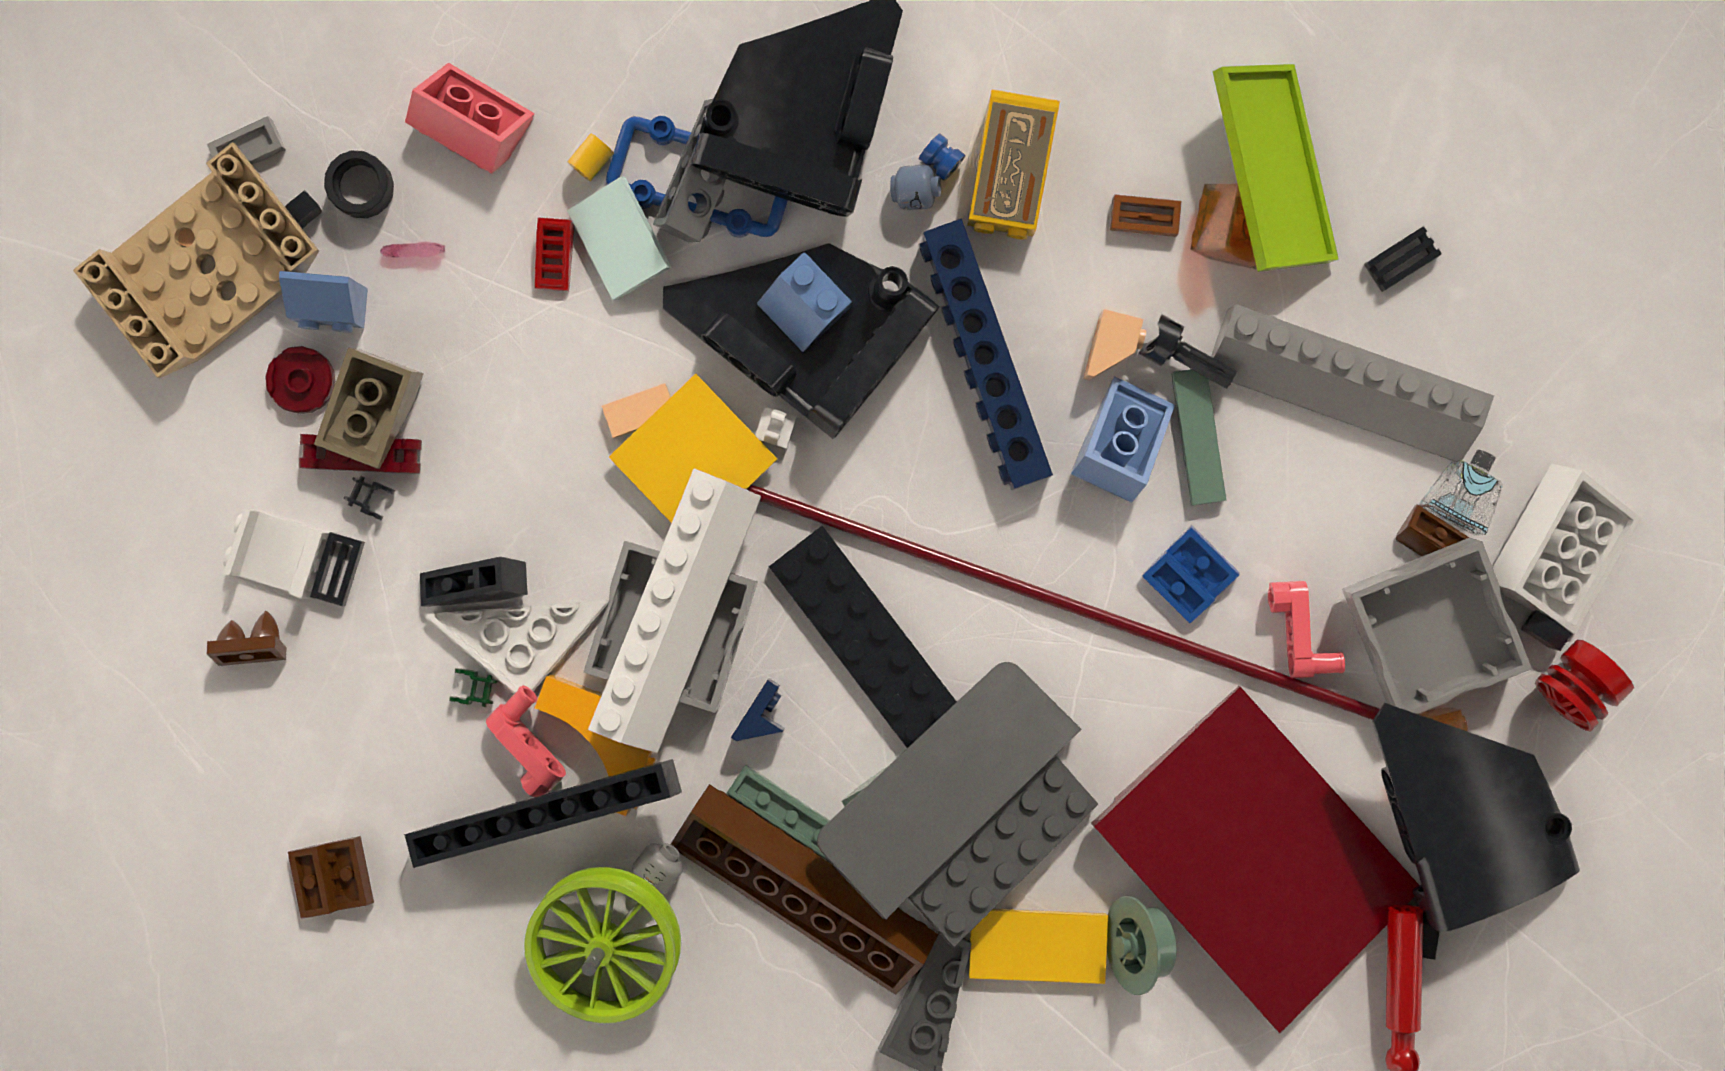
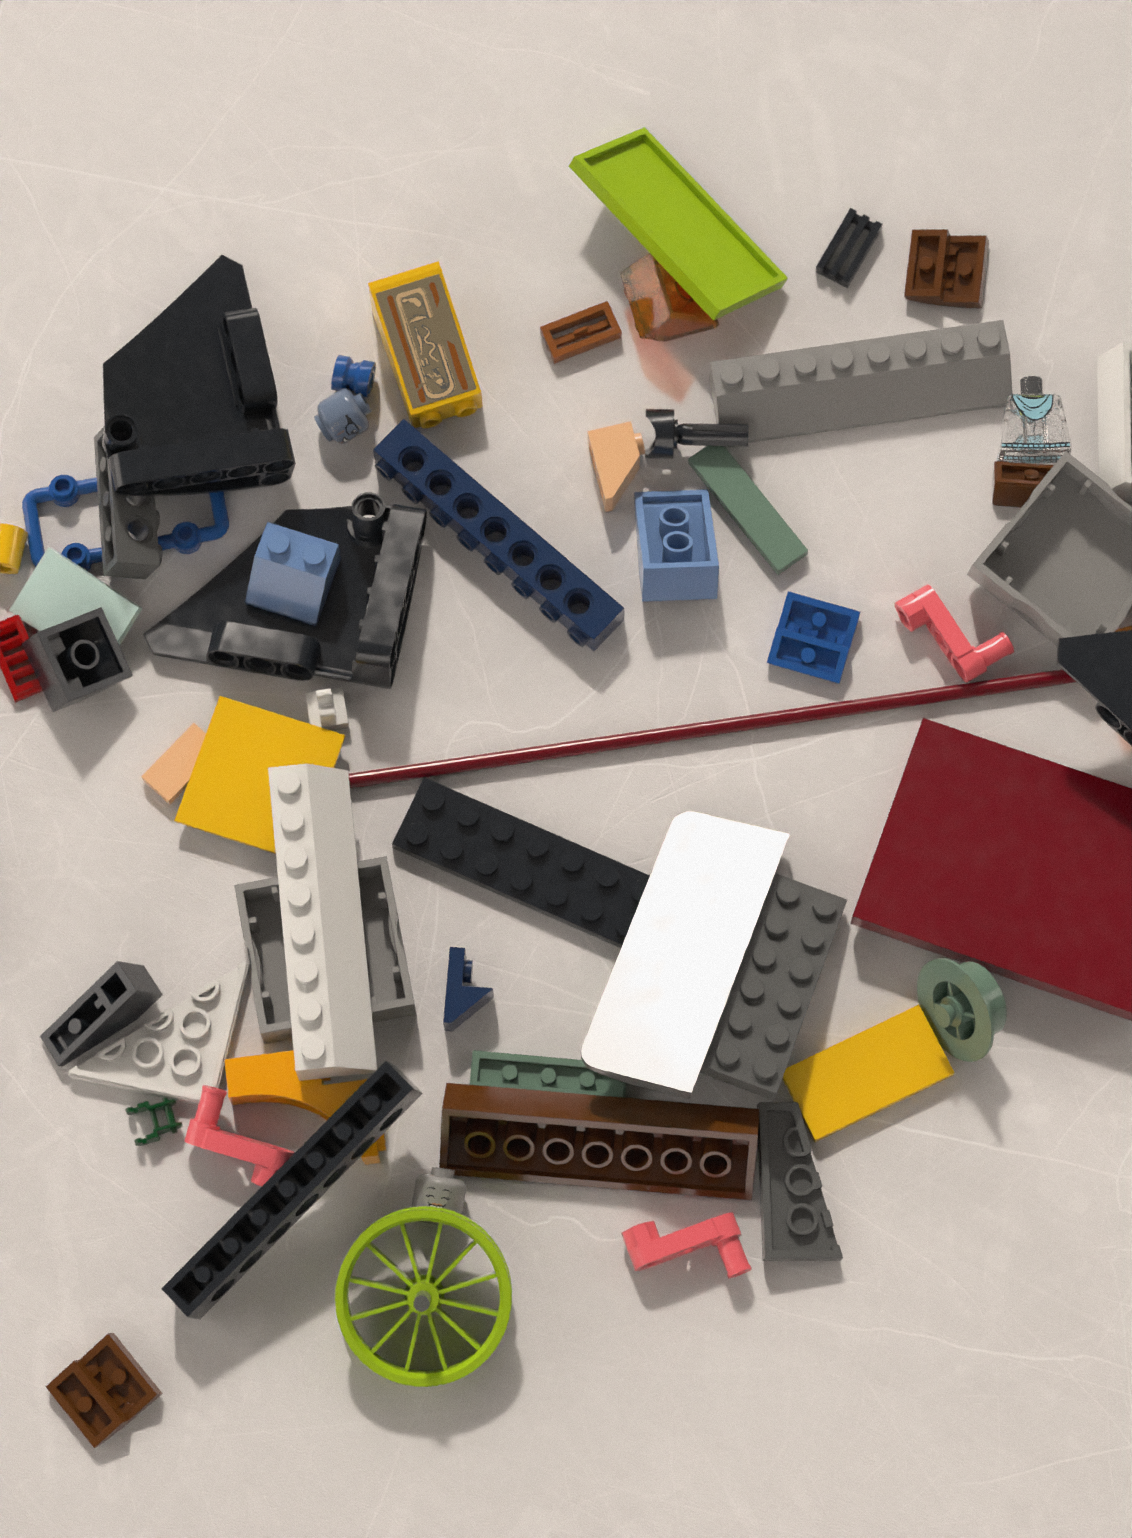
camera: 25 degrees left, 15 degrees down
(597, 283) = (76, 659): none -> black slope
(797, 996) = (649, 1249): none -> coral beam
(1471, 319) = (946, 268): none -> reddish brown slope

